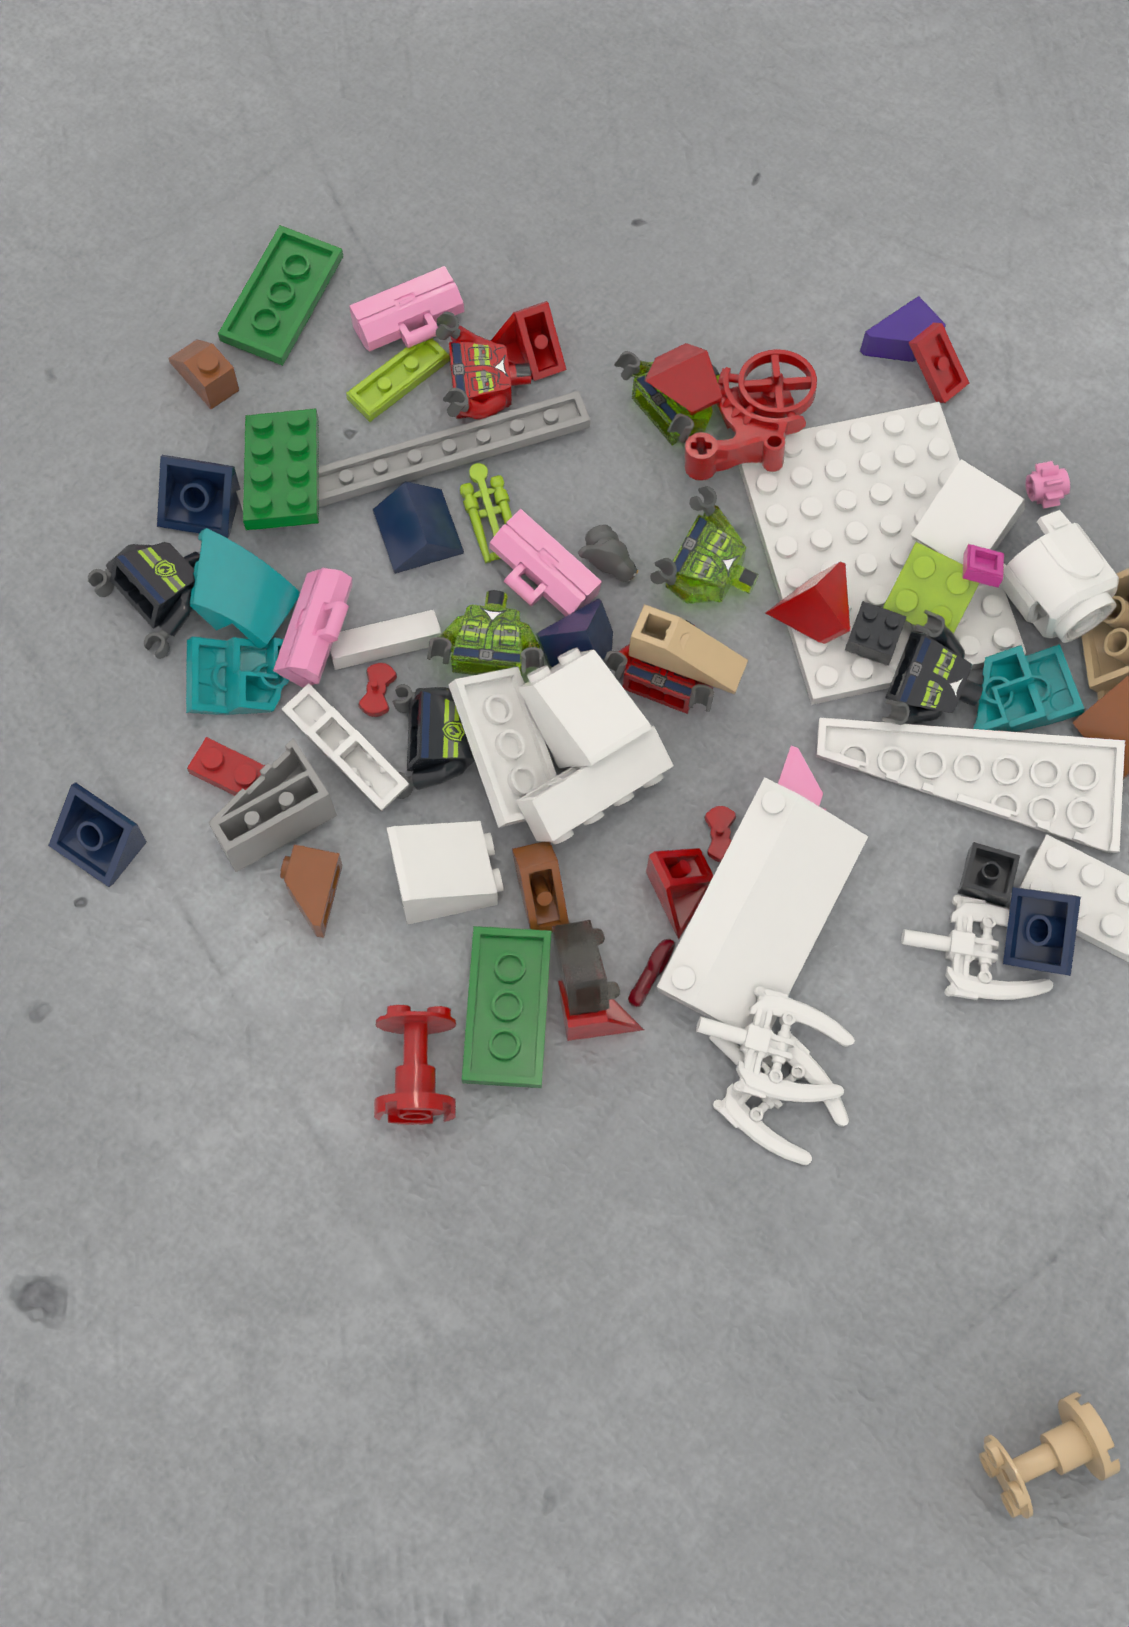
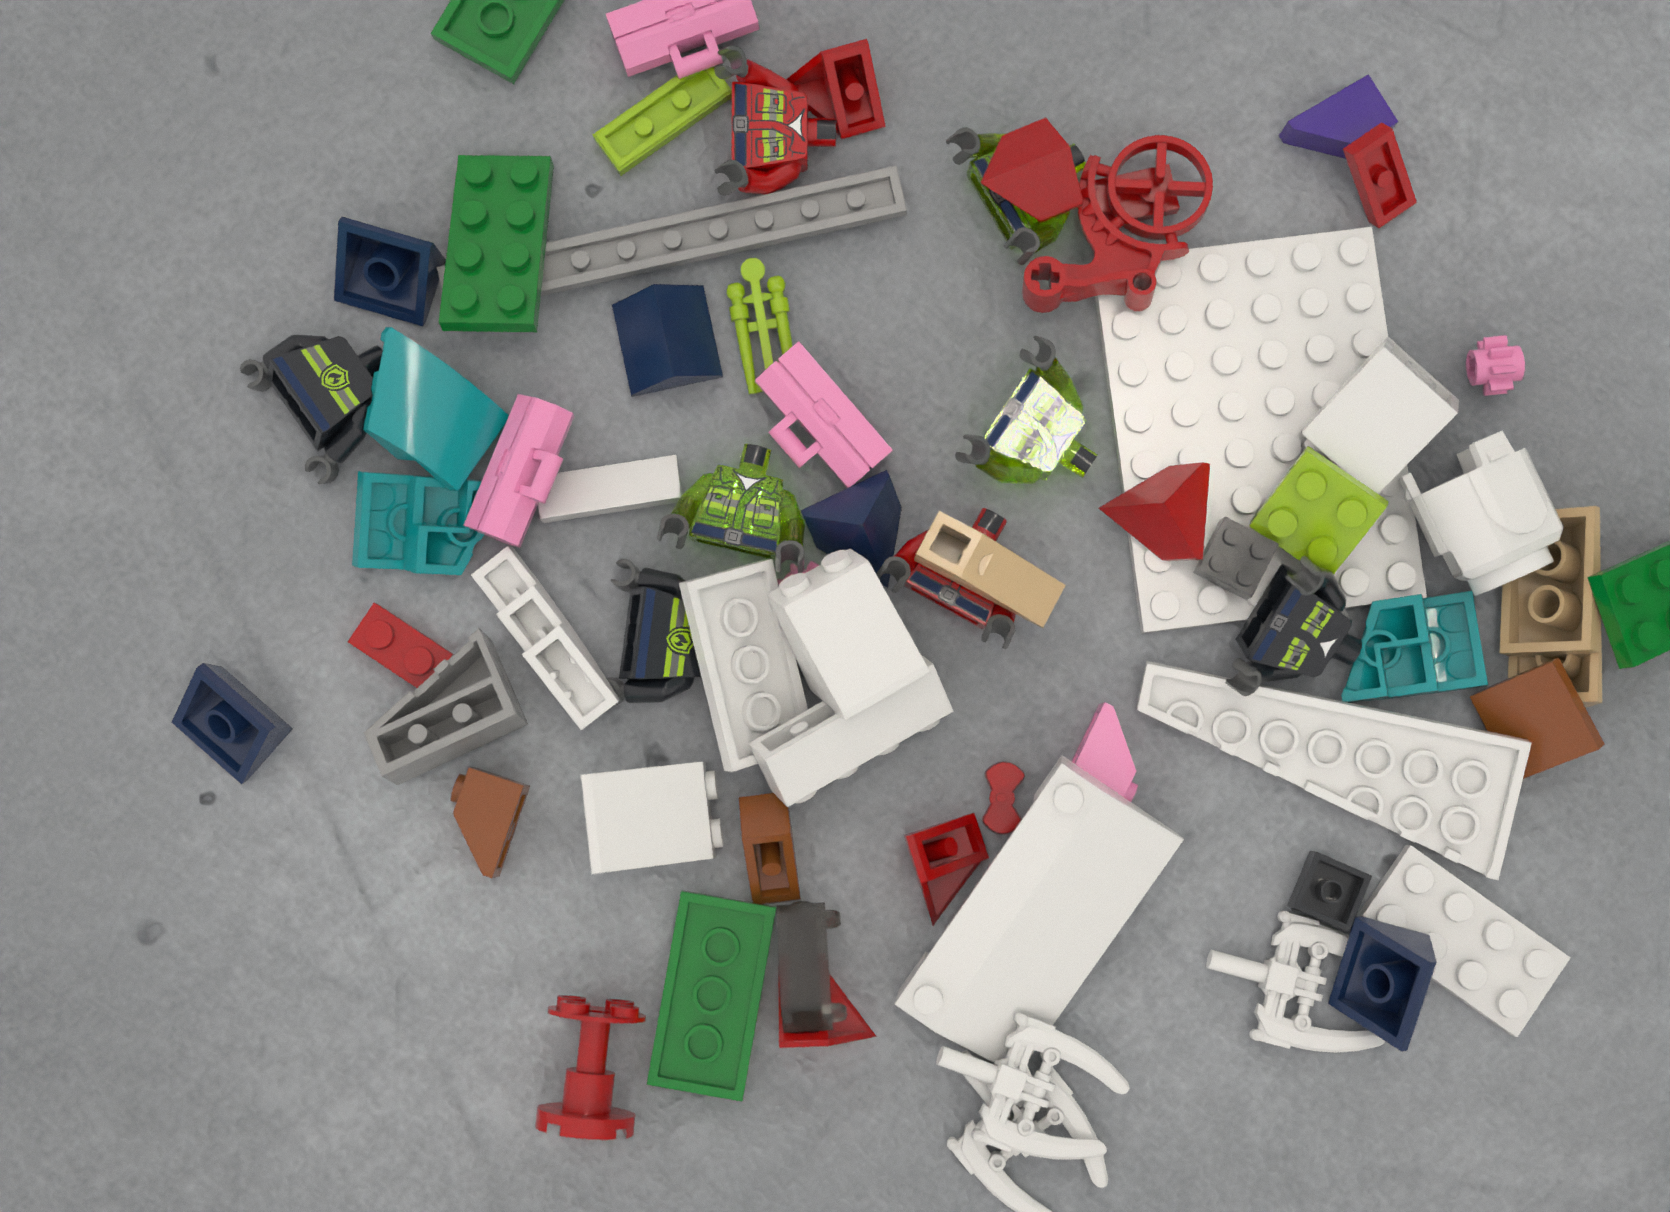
camera: 10 degrees right, 15 degrees up
(206, 372) = (410, 85): dark orange slope -> none
(374, 701) = (598, 542): red piece -> none
(608, 553) = (907, 403): dark grey animal -> none
(654, 967) = (893, 968): dark red piece -> none
(983, 565) = (1388, 496): dark pink tile -> none

